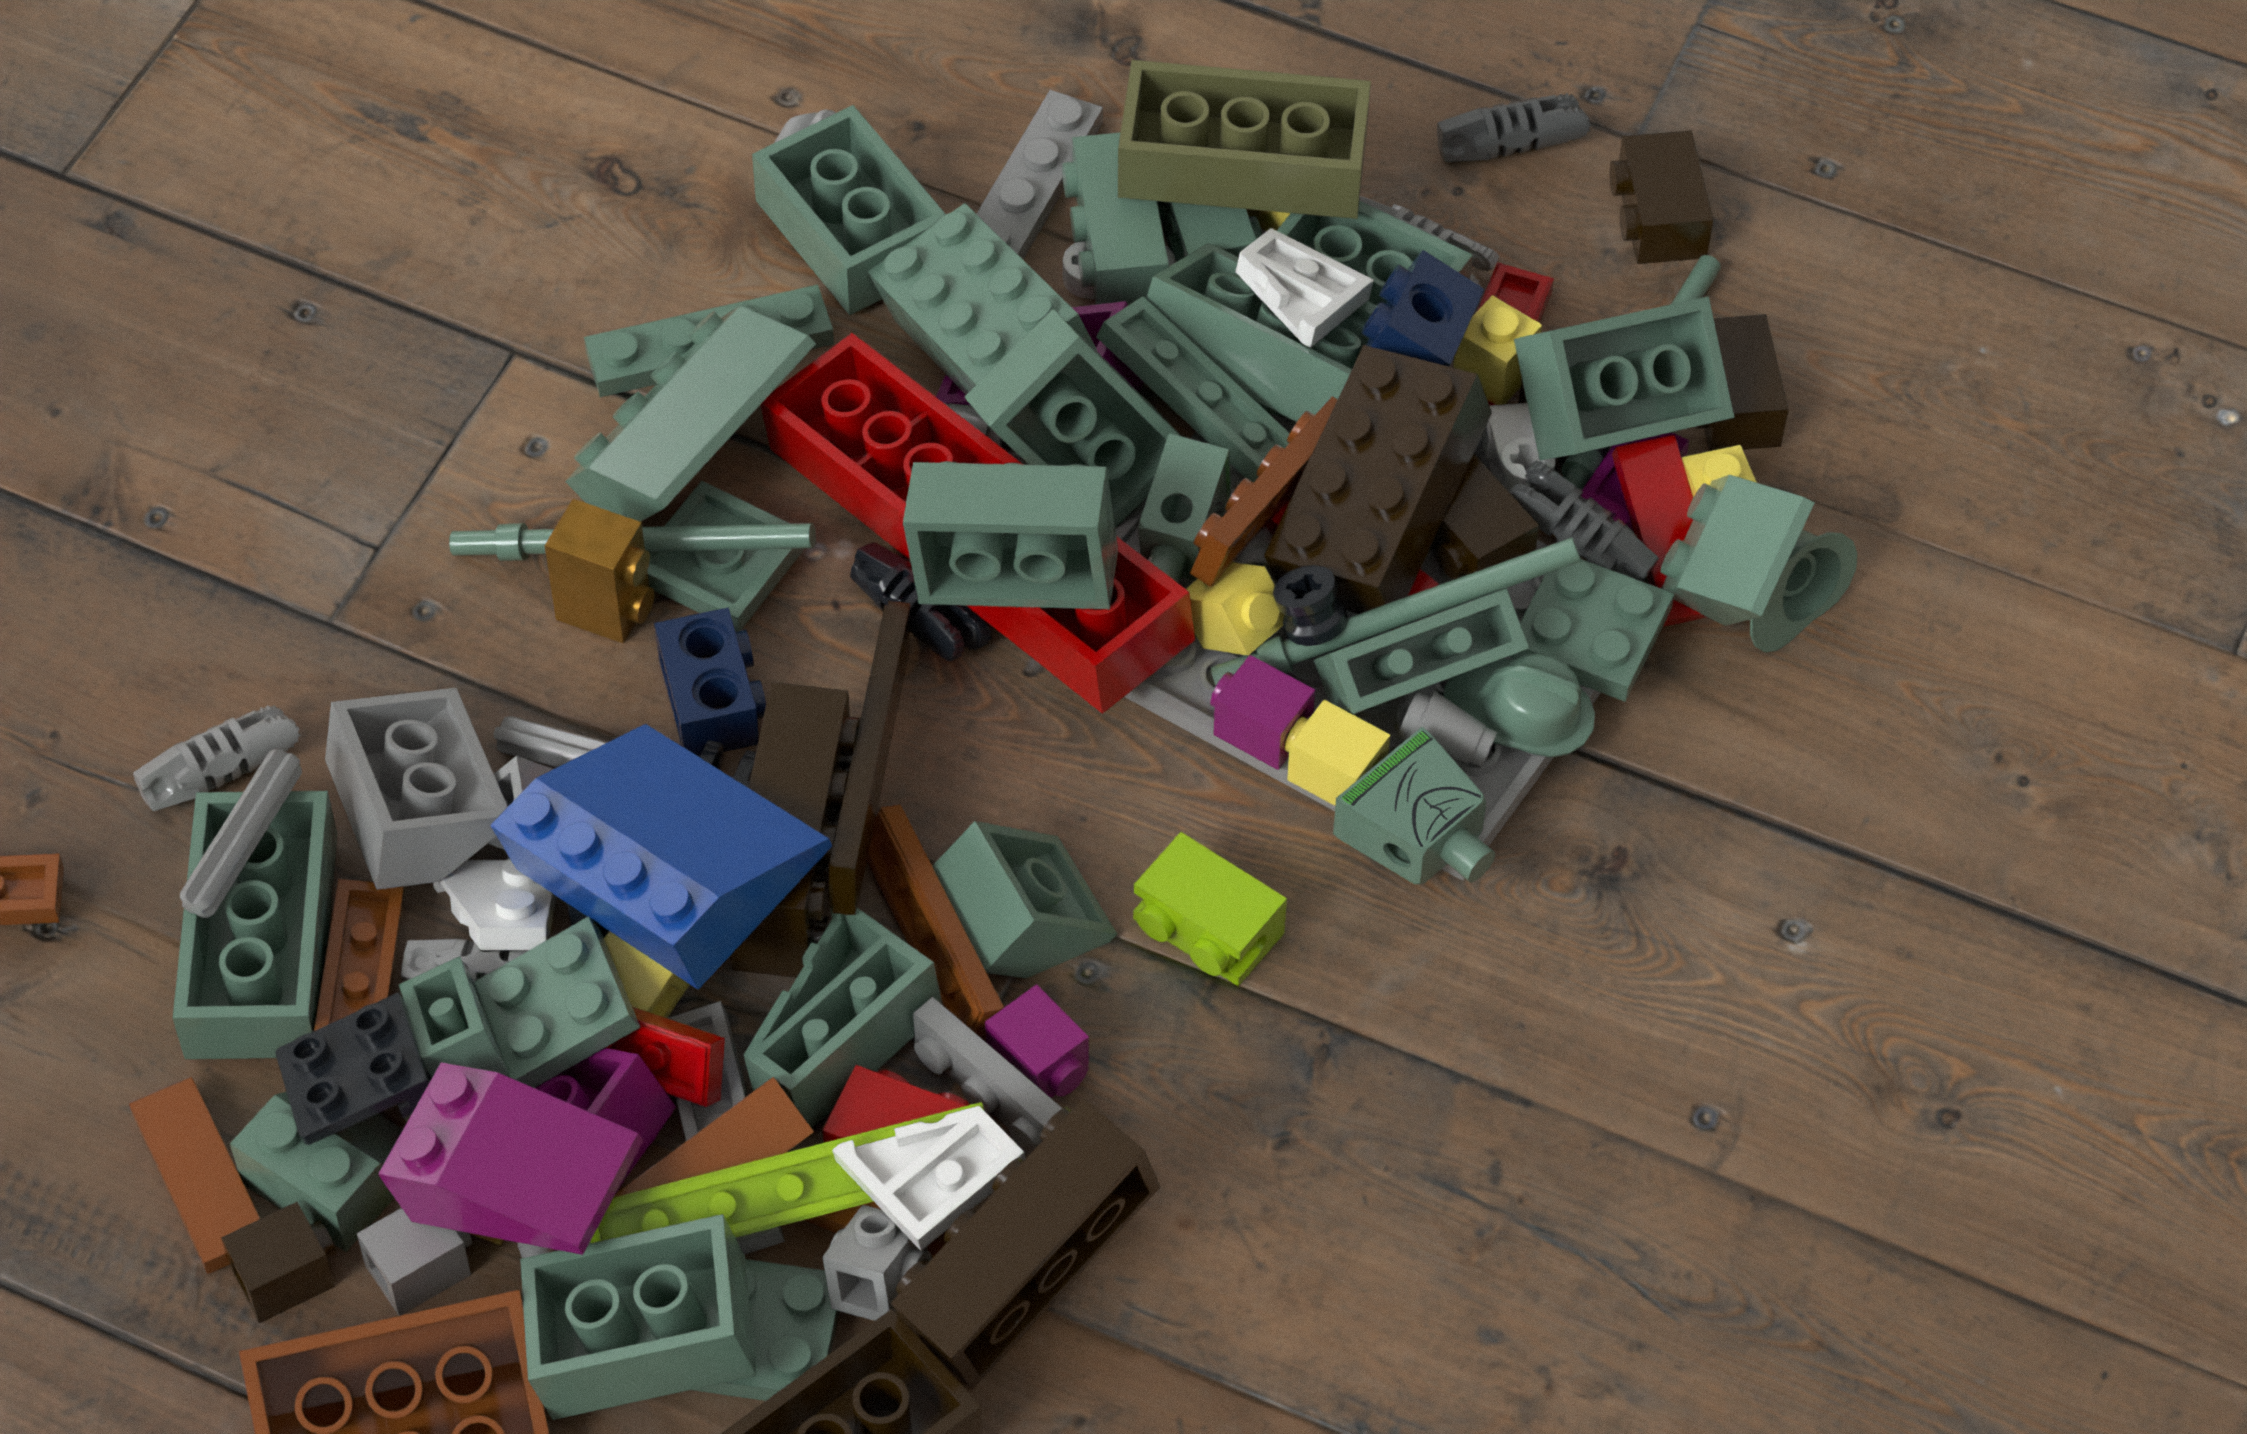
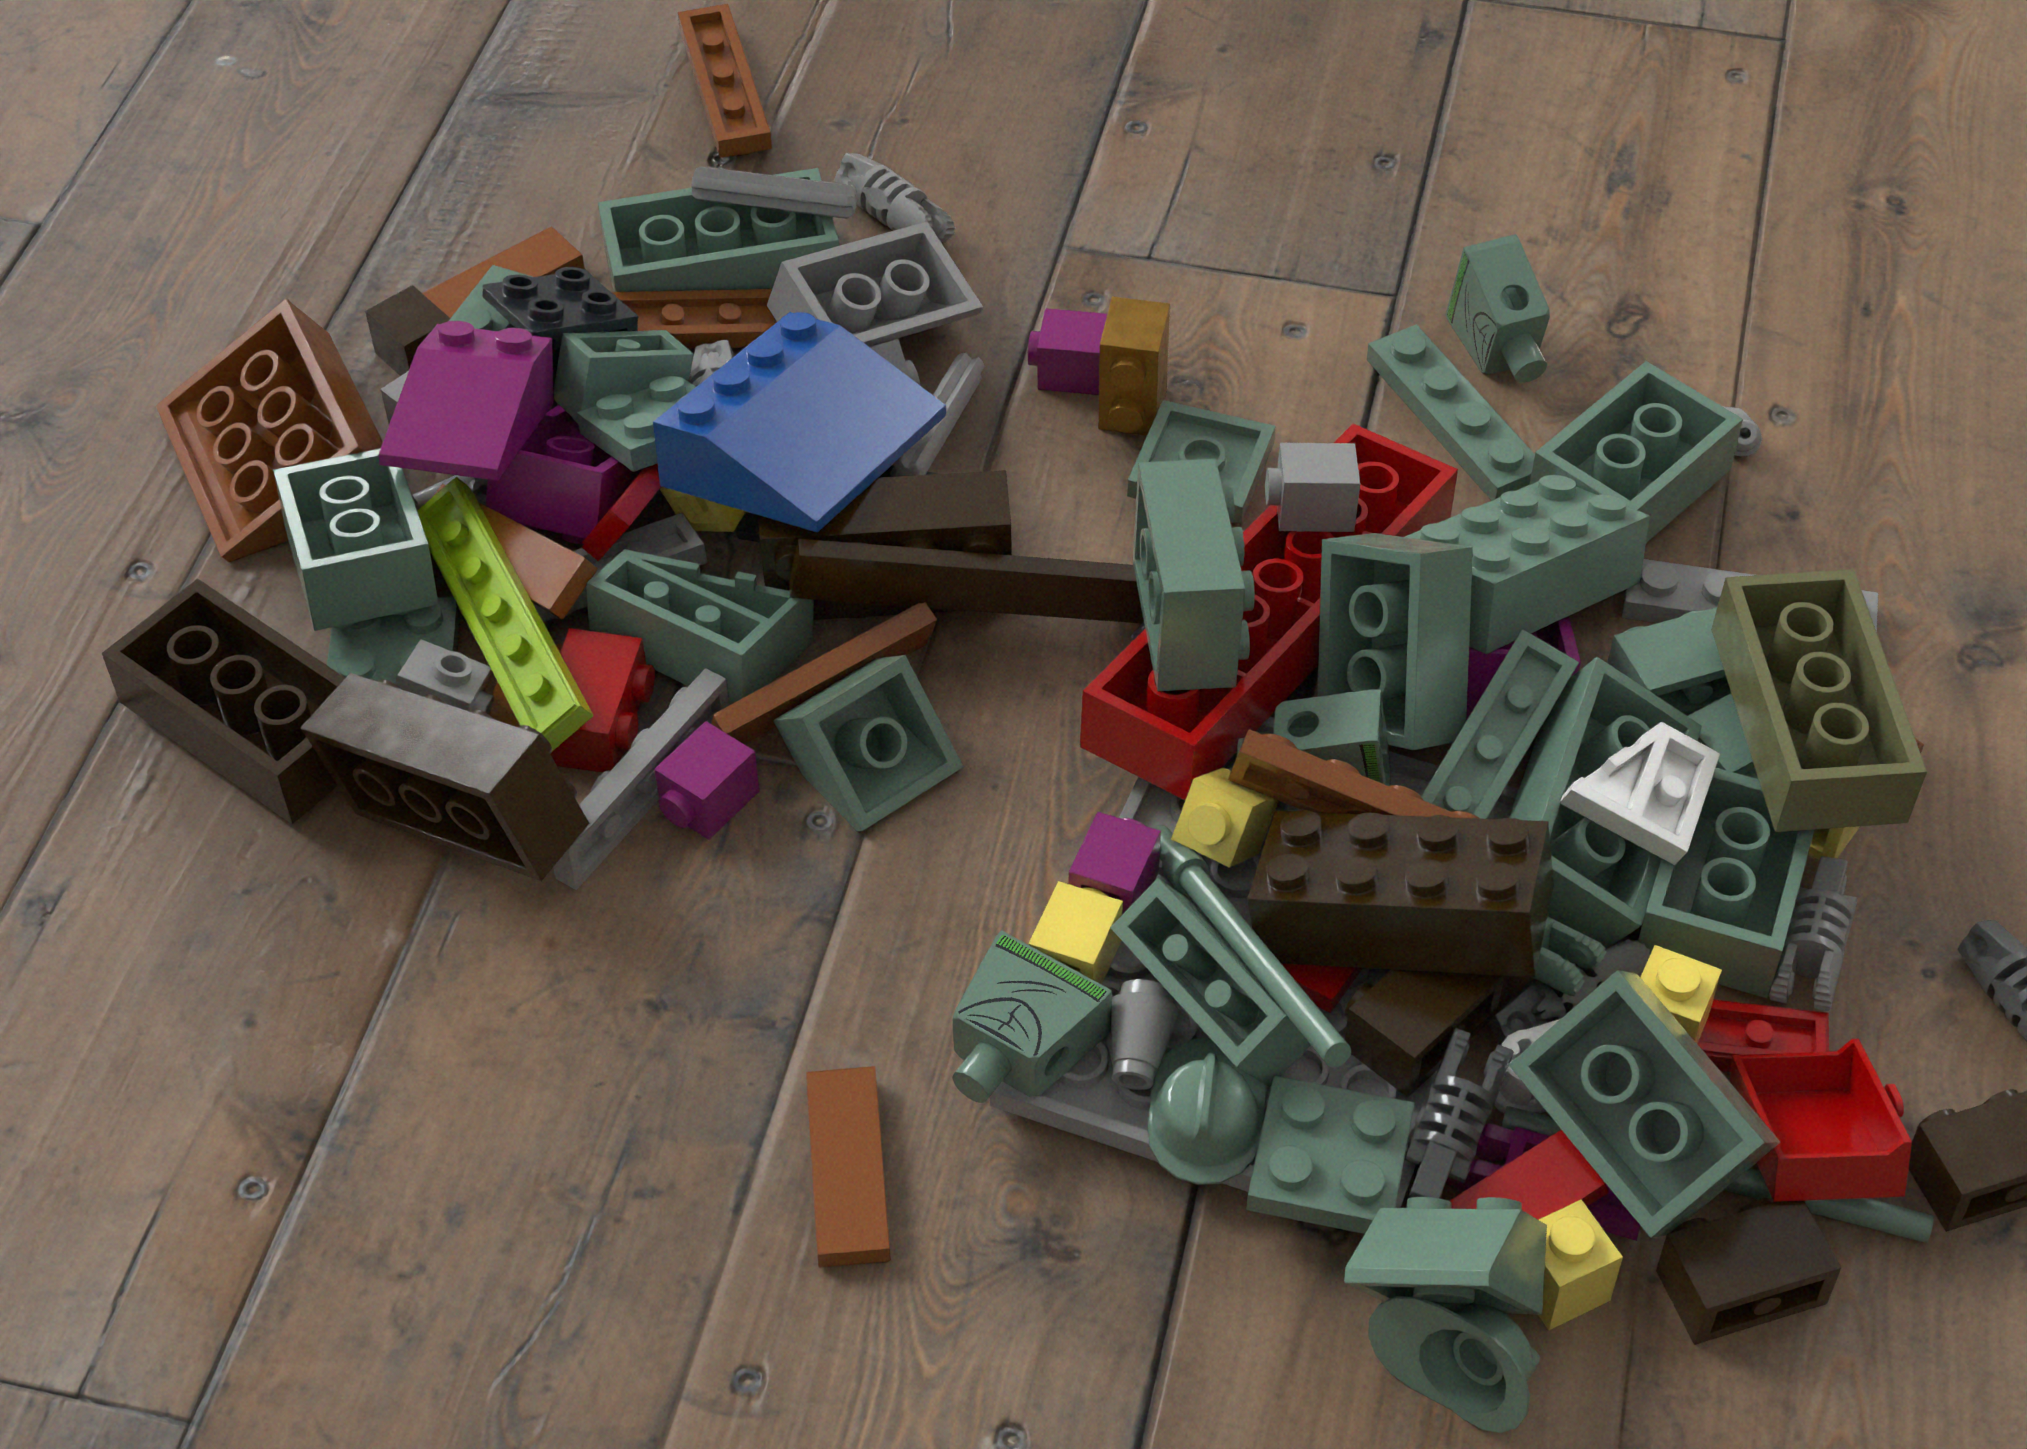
camera: 80 degrees right, 5 degrees down
(516, 541) = (1184, 379): sand green bar -> none
(528, 630) = (1067, 351): none -> magenta brick
(614, 258) = (1499, 309): none -> sand green torso
(687, 413) = (1327, 387): sand green slope -> none
(701, 684) = (1057, 474): dark blue brick -> none
(880, 431) = (1315, 487): none -> light grey brick
(931, 1170) = (500, 676): white wing -> none
(1209, 909) = (890, 885): lime brick -> none
(1310, 605) = (1223, 859): black wheel -> none
(1423, 311) = (1592, 903): dark blue brick -> none
(1506, 1001) = (847, 1167): none -> dark orange tile
(1623, 272) = (1832, 1124): none -> red container

